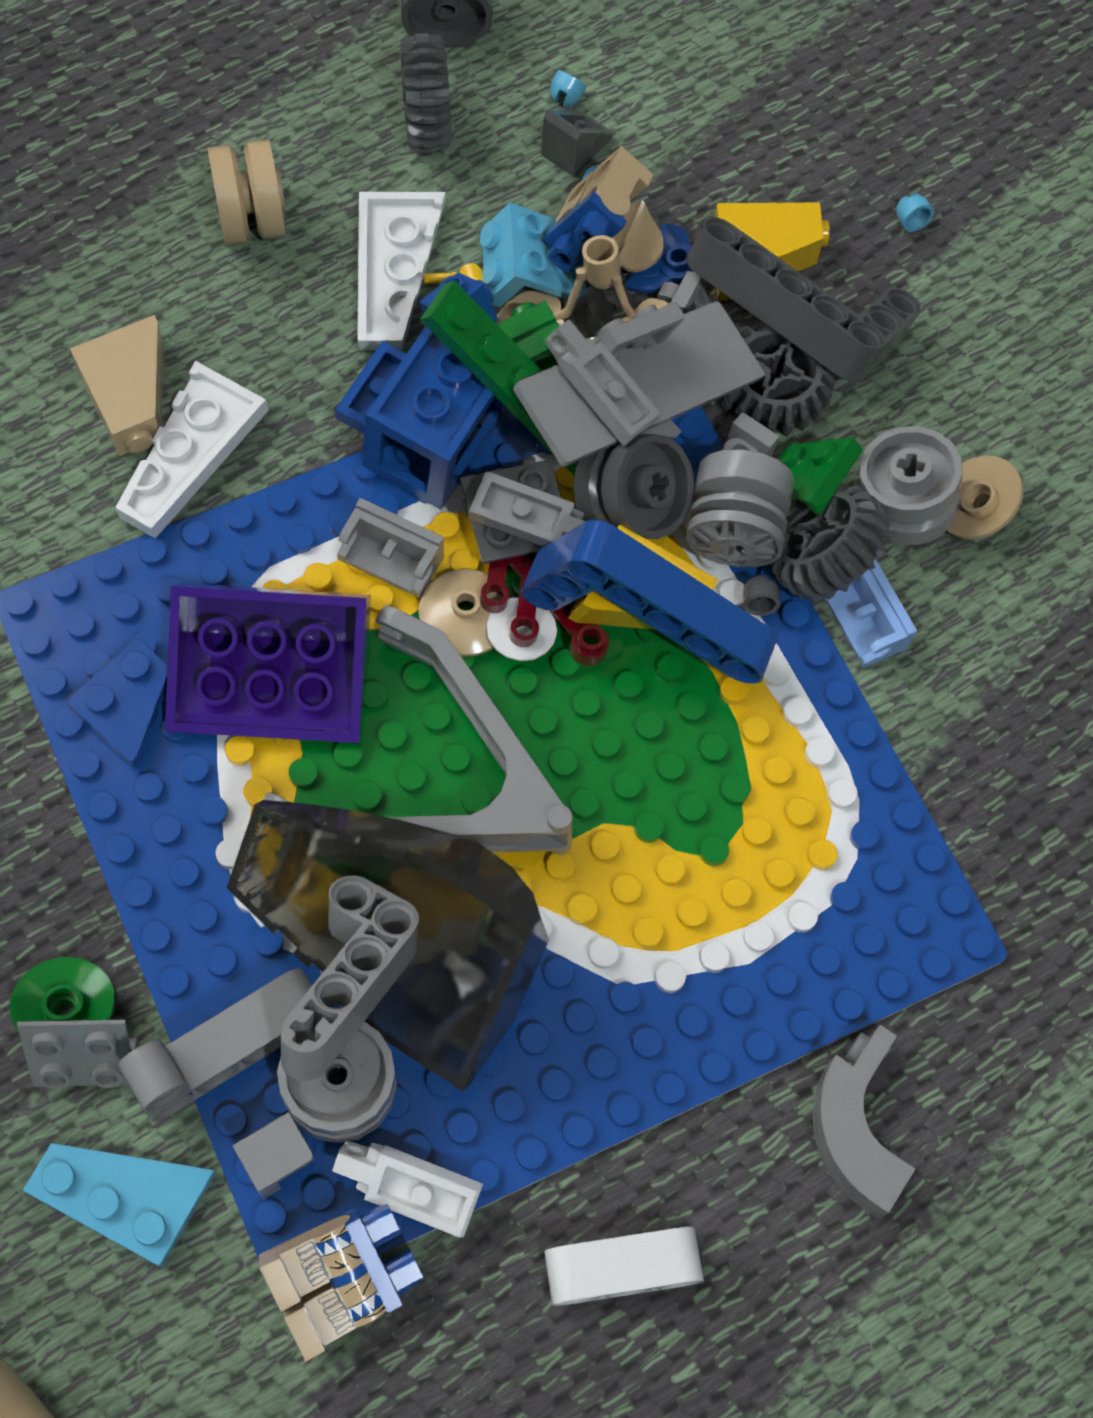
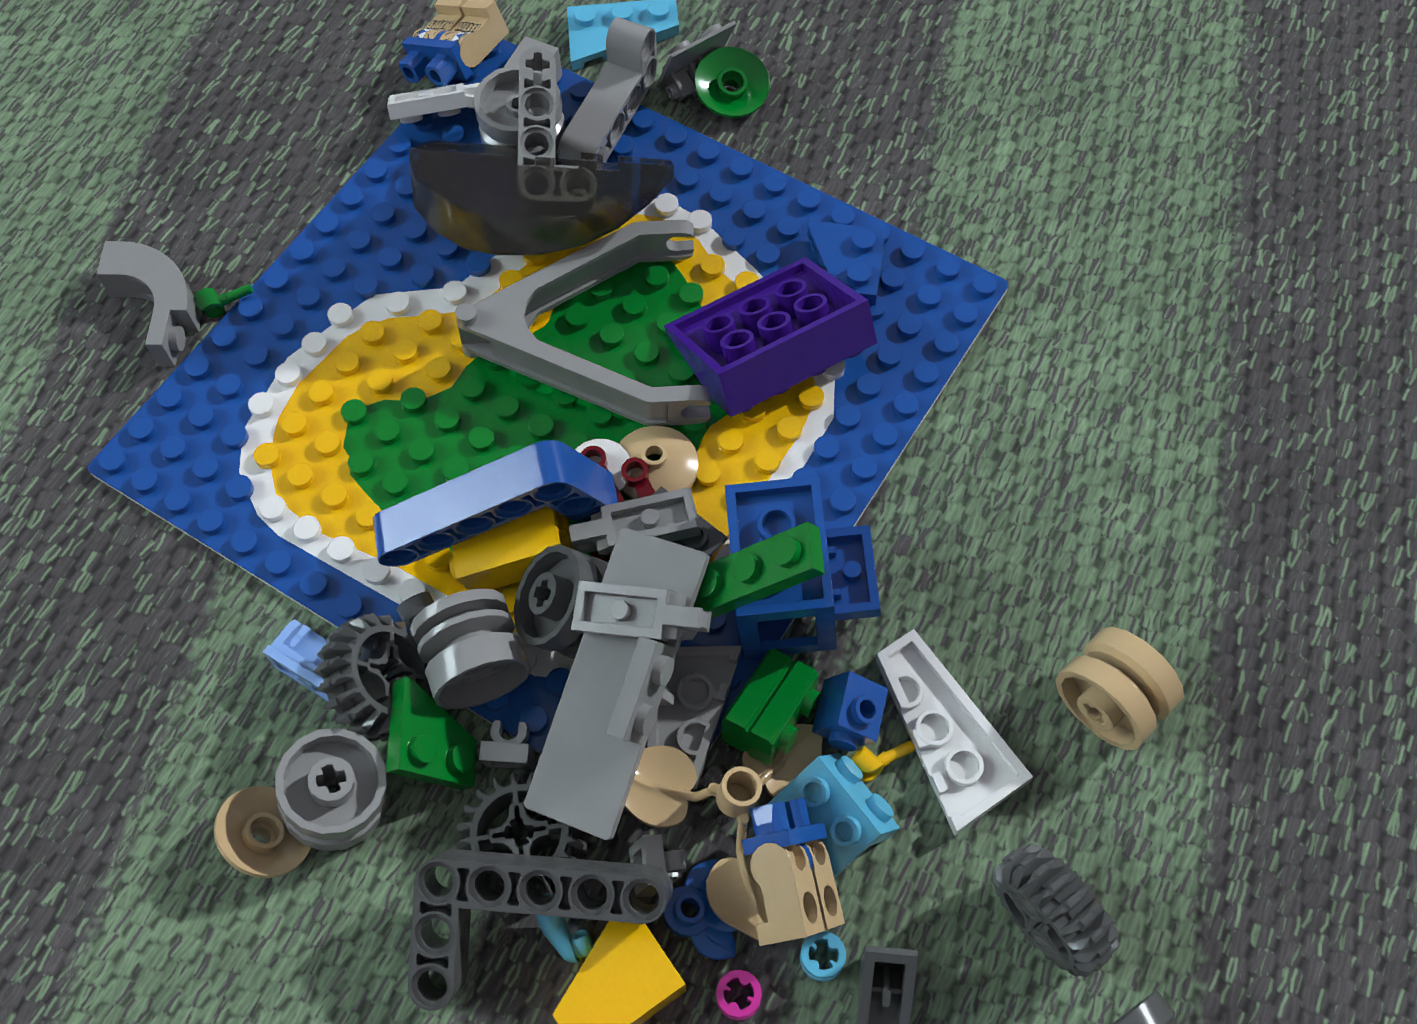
camera: 155 degrees right, 5 degrees down
(125, 382) = (1059, 474): tan slope -> none
(197, 438) = (969, 467): white wing -> none
(390, 548) = (743, 466): light grey hinge -> none
(623, 1266) = (277, 143): white beam -> none
(680, 186) = (745, 980): none -> dark pink bush
(801, 1079) = (213, 304): none -> green hand

